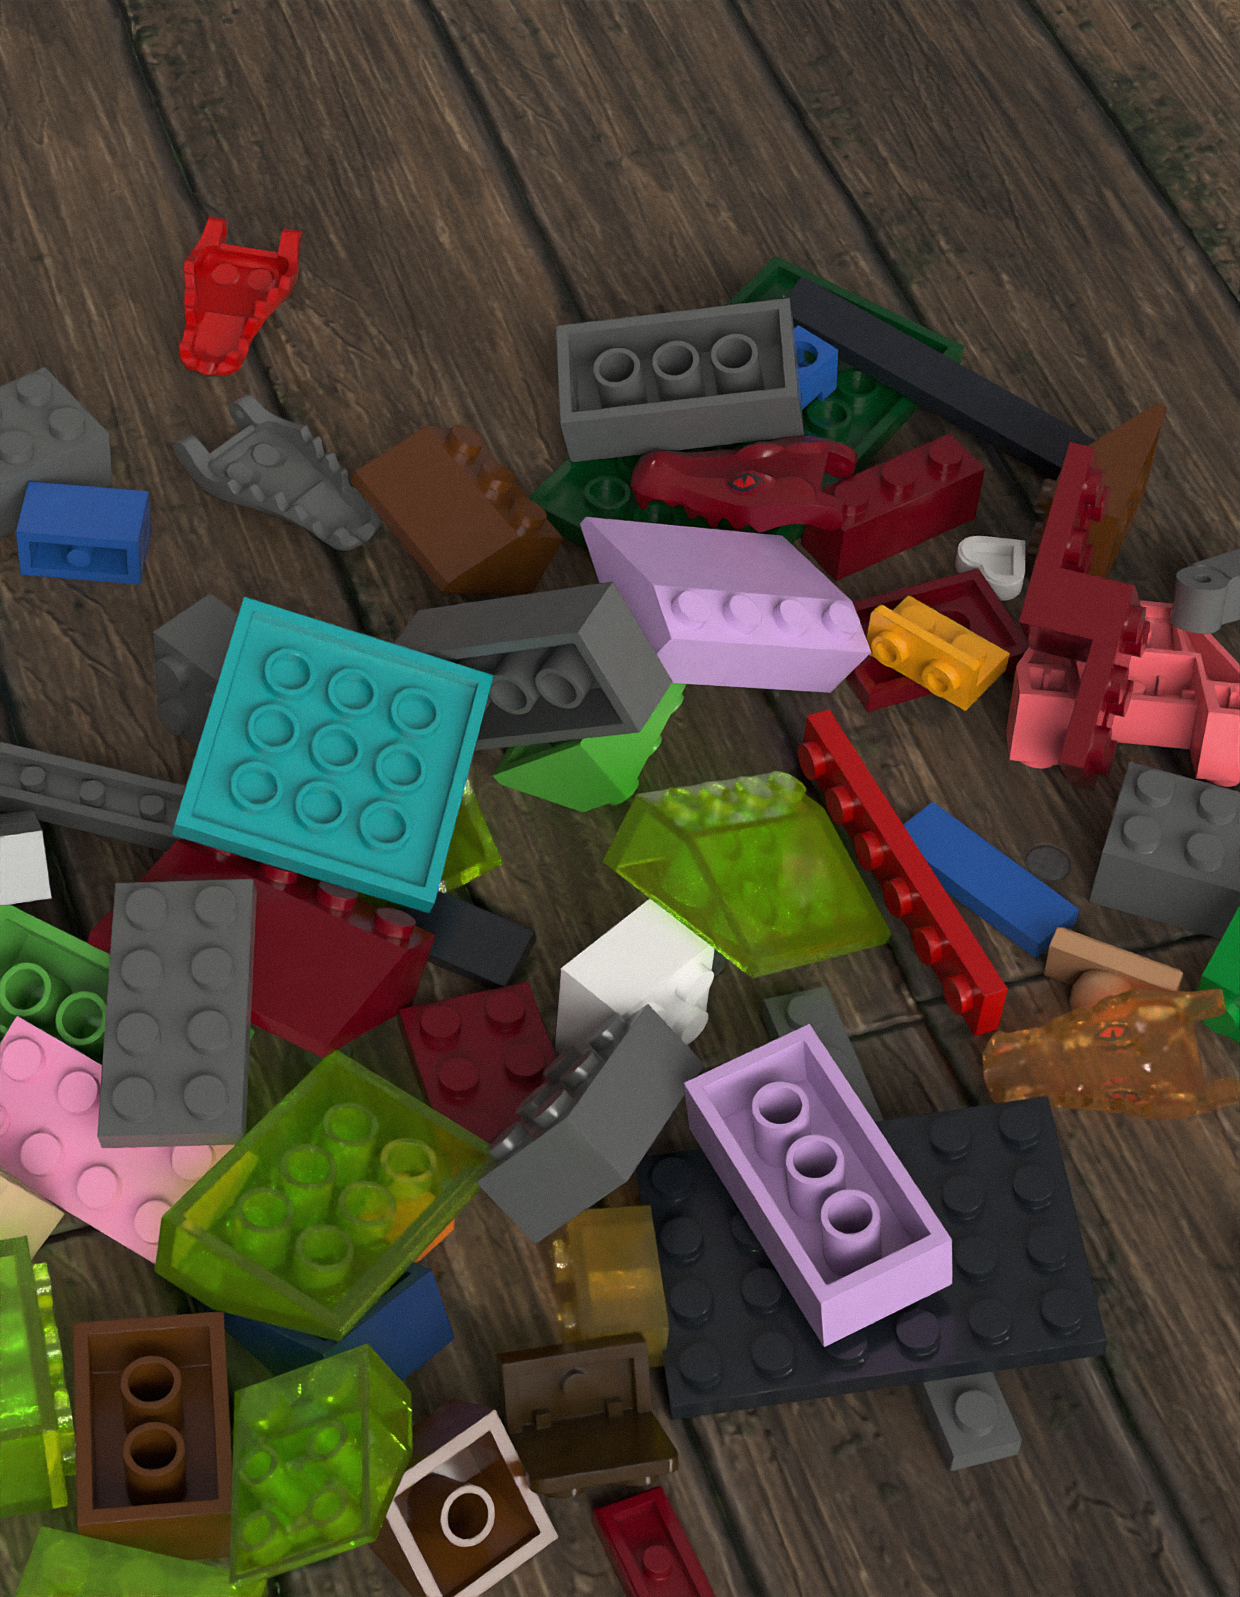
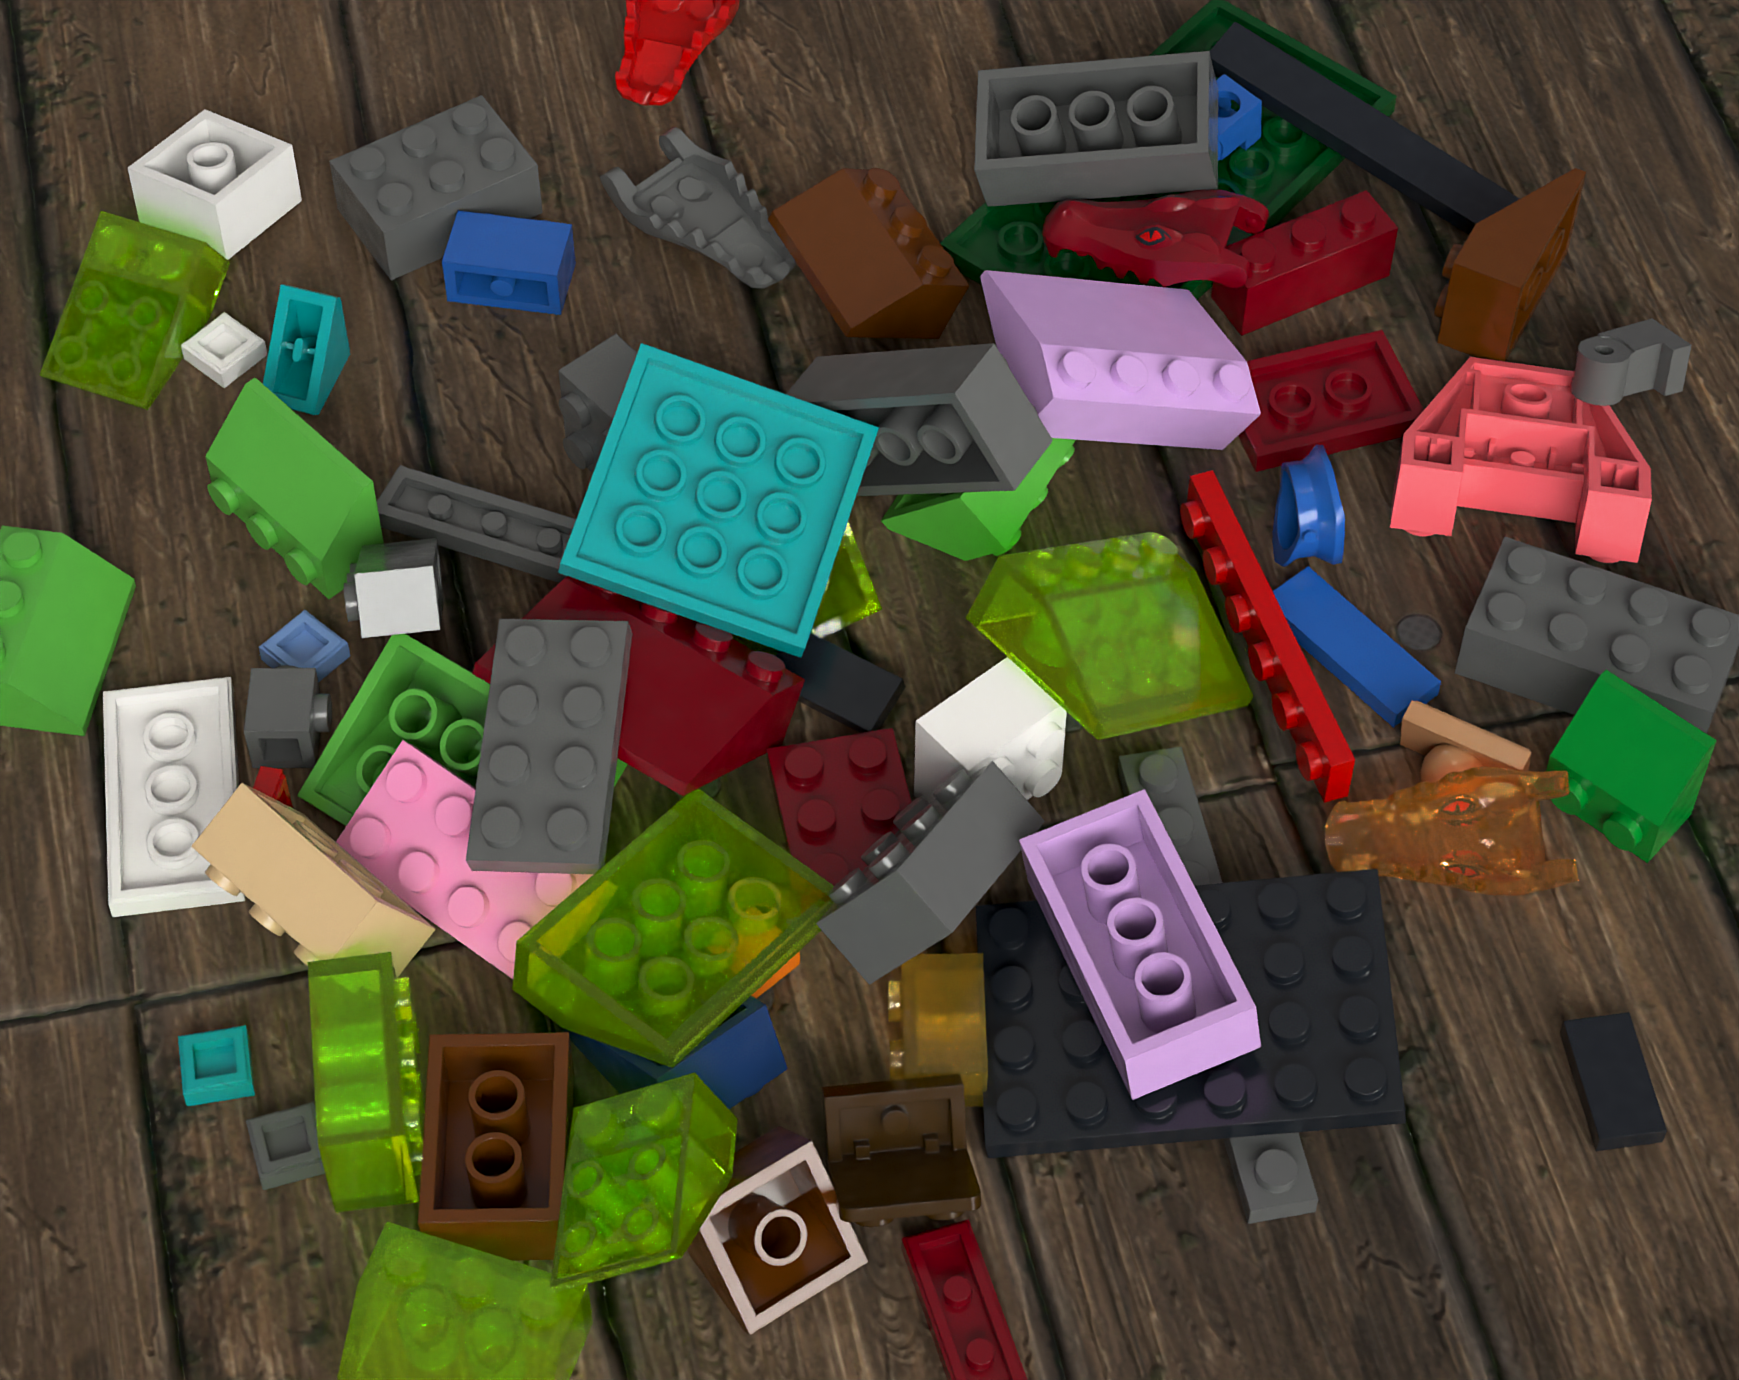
camera: 10 degrees right, 5 degrees up
(930, 746) = (1308, 511): none -> blue hat
(935, 651) = (1327, 413): light orange bracket -> none
(997, 559) = (1404, 322): white tile -> none
(1084, 617) = (1470, 389): dark red bracket -> none

